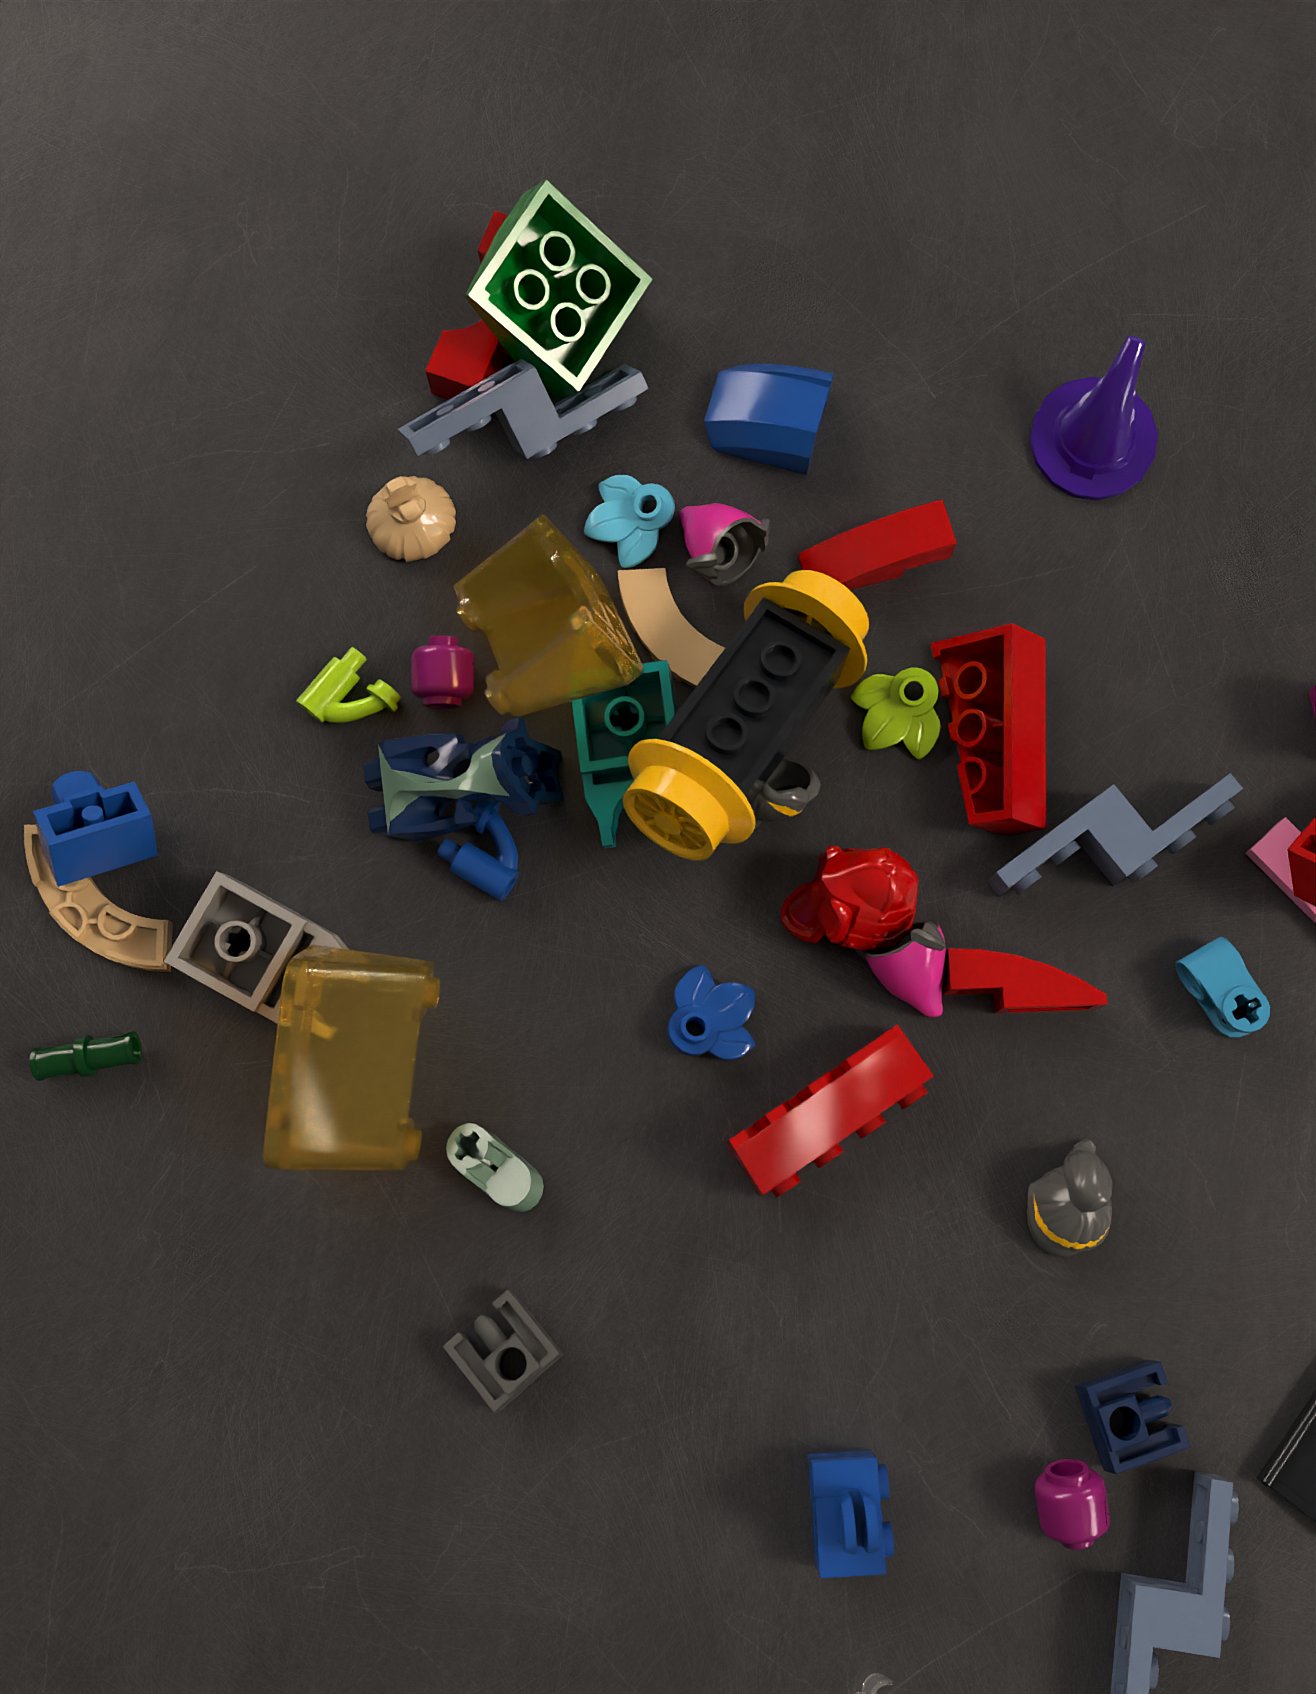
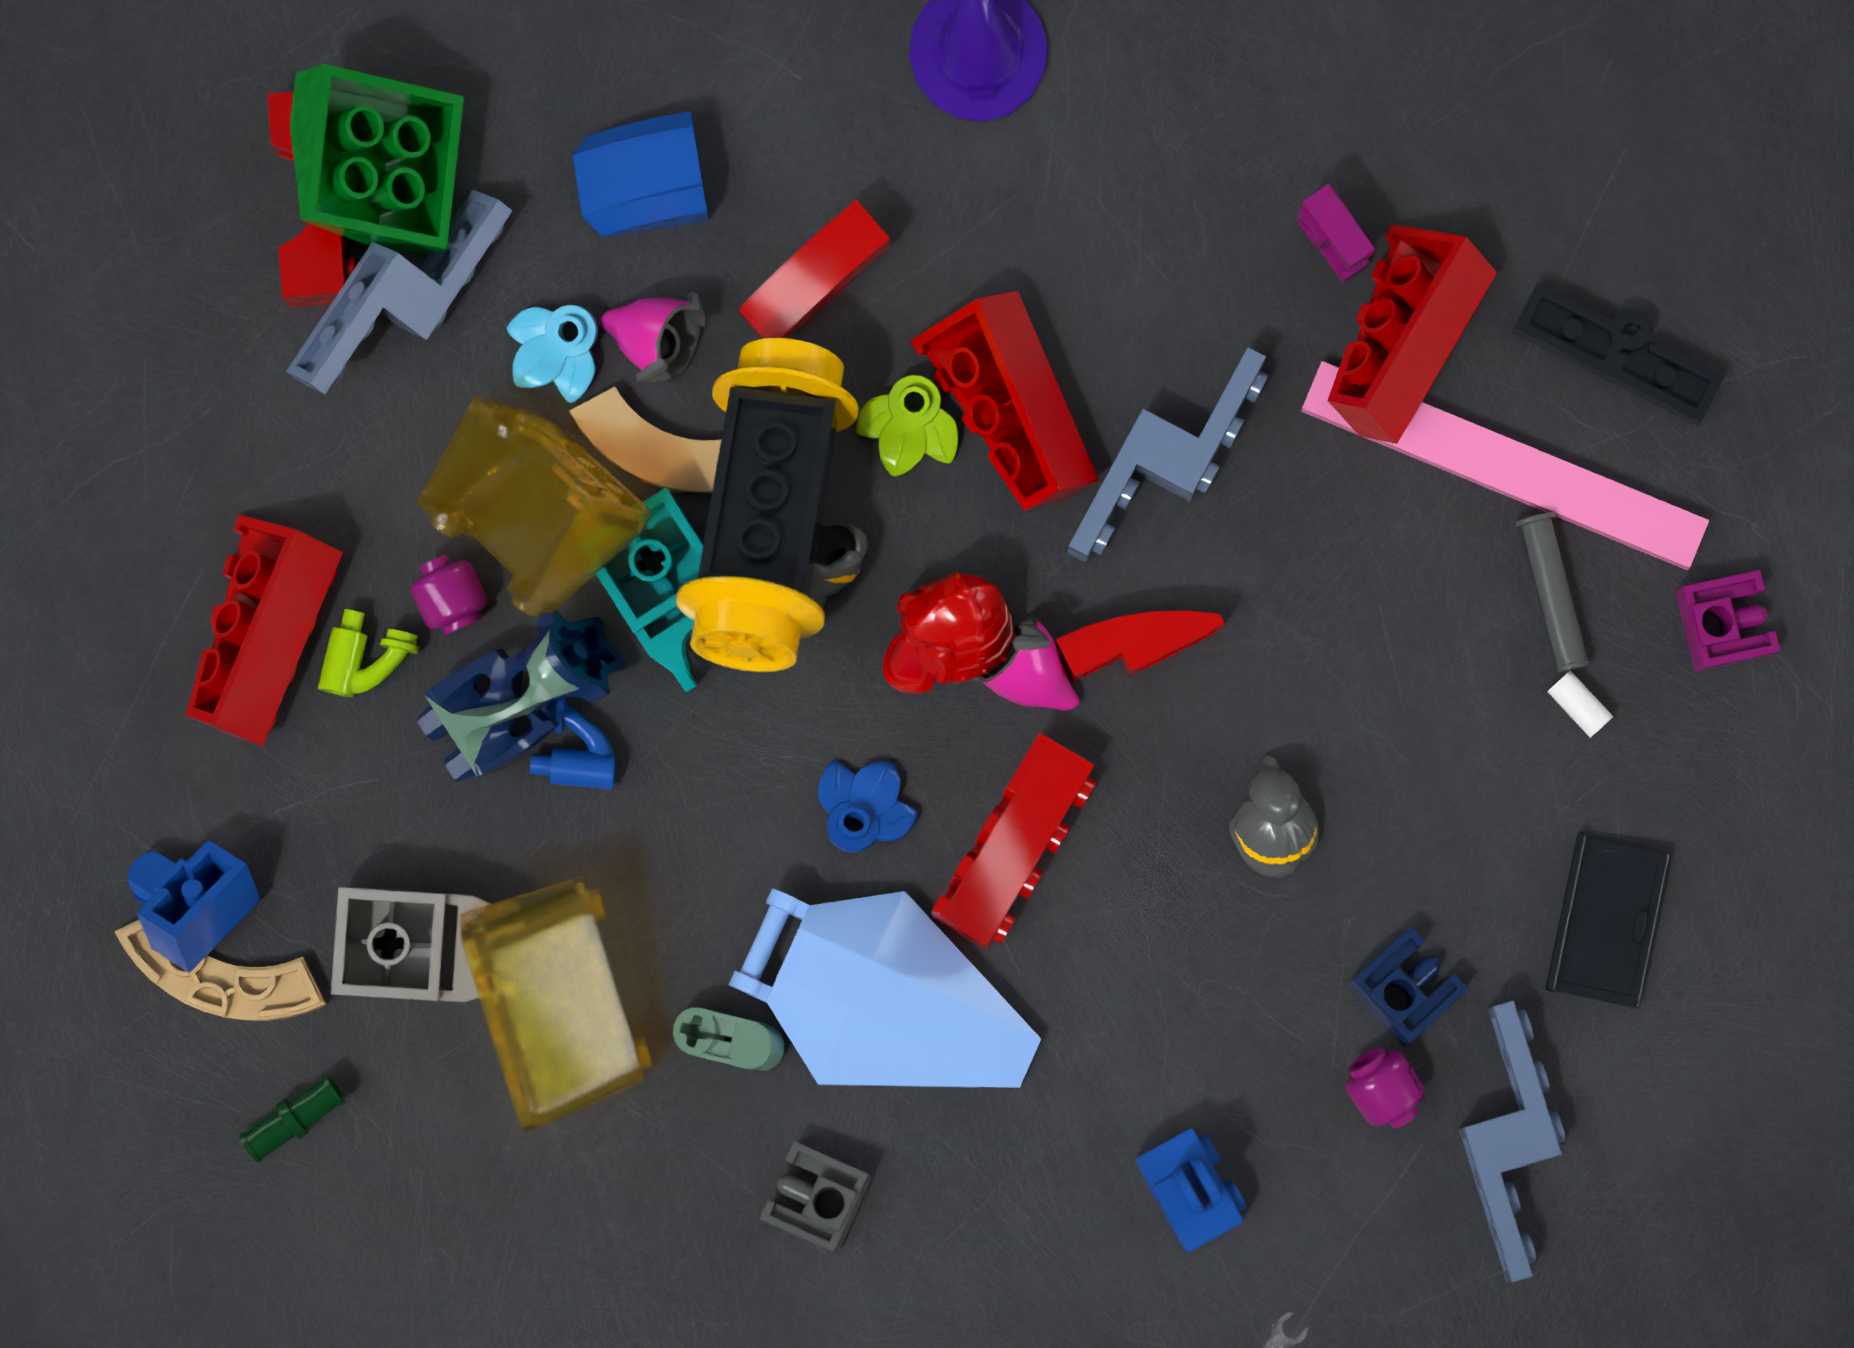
camera: 25 degrees left, 5 degrees up
(273, 631) = (260, 627): none -> red wedge
(411, 518) = (348, 465): tan hair -> none
(650, 1198) = (885, 998): none -> light blue windscreen
(1221, 984) = (1321, 548): dark azure piece -> none

